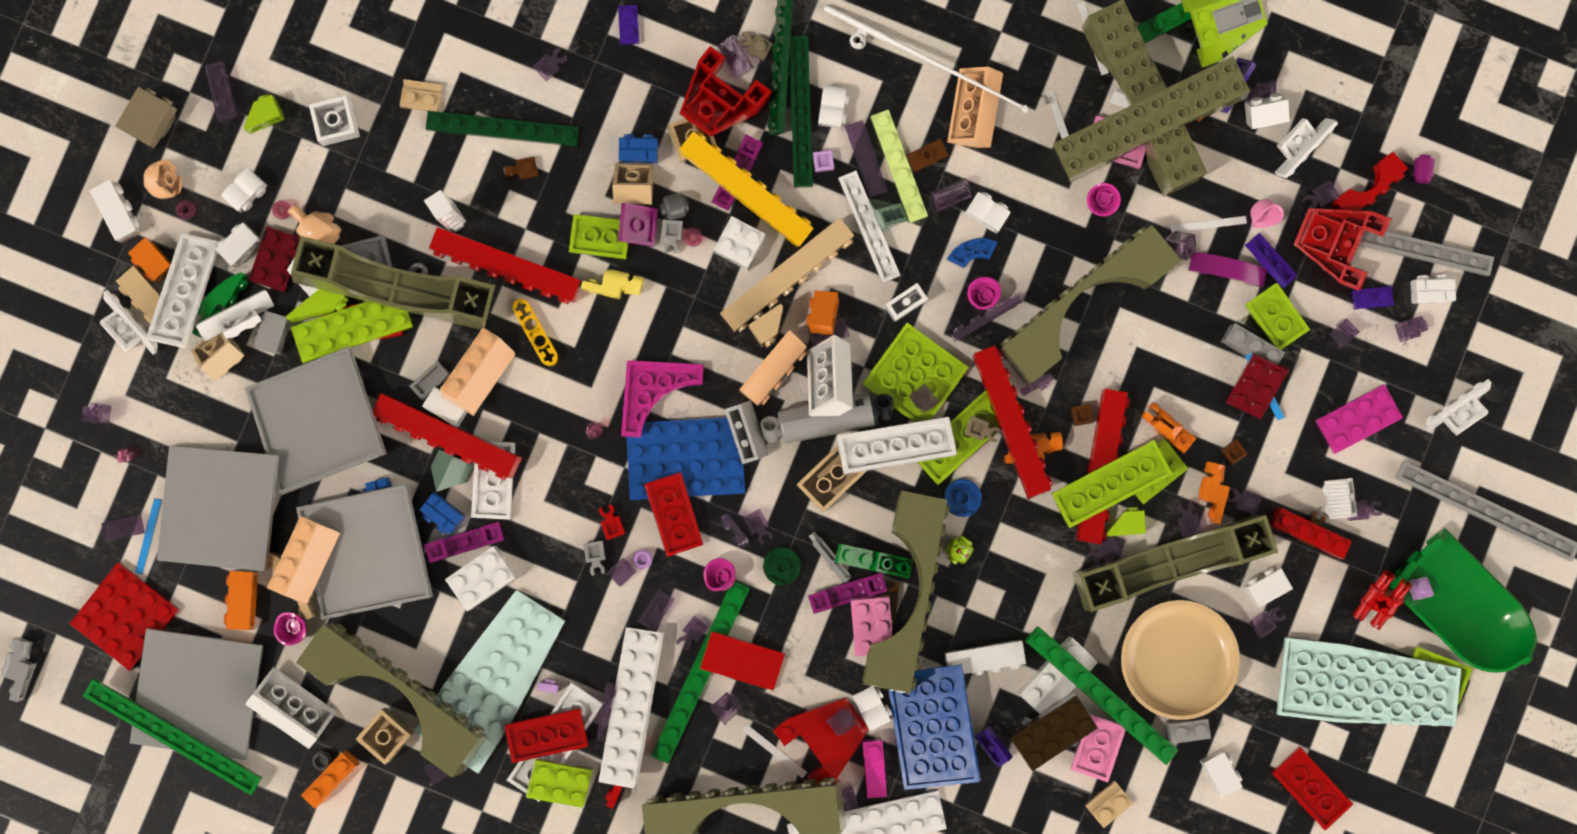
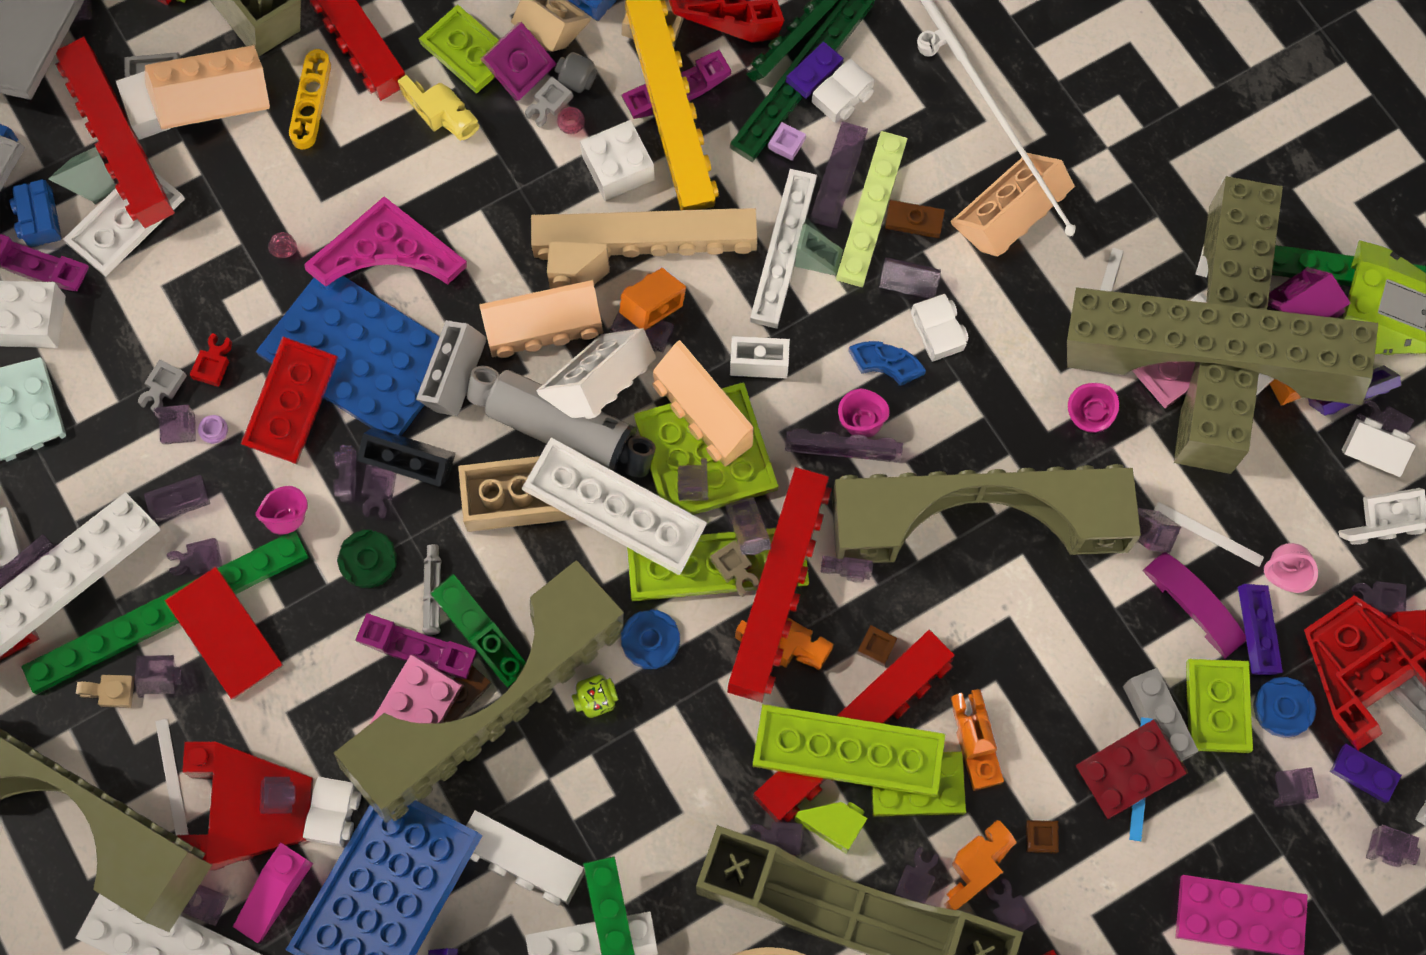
camera: 35 degrees right, 15 degrees down
(707, 731) = (112, 691): none -> tan plate
(761, 498) = (405, 456): none -> black brick
(808, 107) = (814, 70): none -> dark purple plate
(899, 355) = (702, 405): none -> light nougat slope
(972, 403) = (748, 526): none -> plate
(1177, 57) = (1310, 294): none -> magenta slope
(1309, 292) = (1284, 707): none -> blue tile

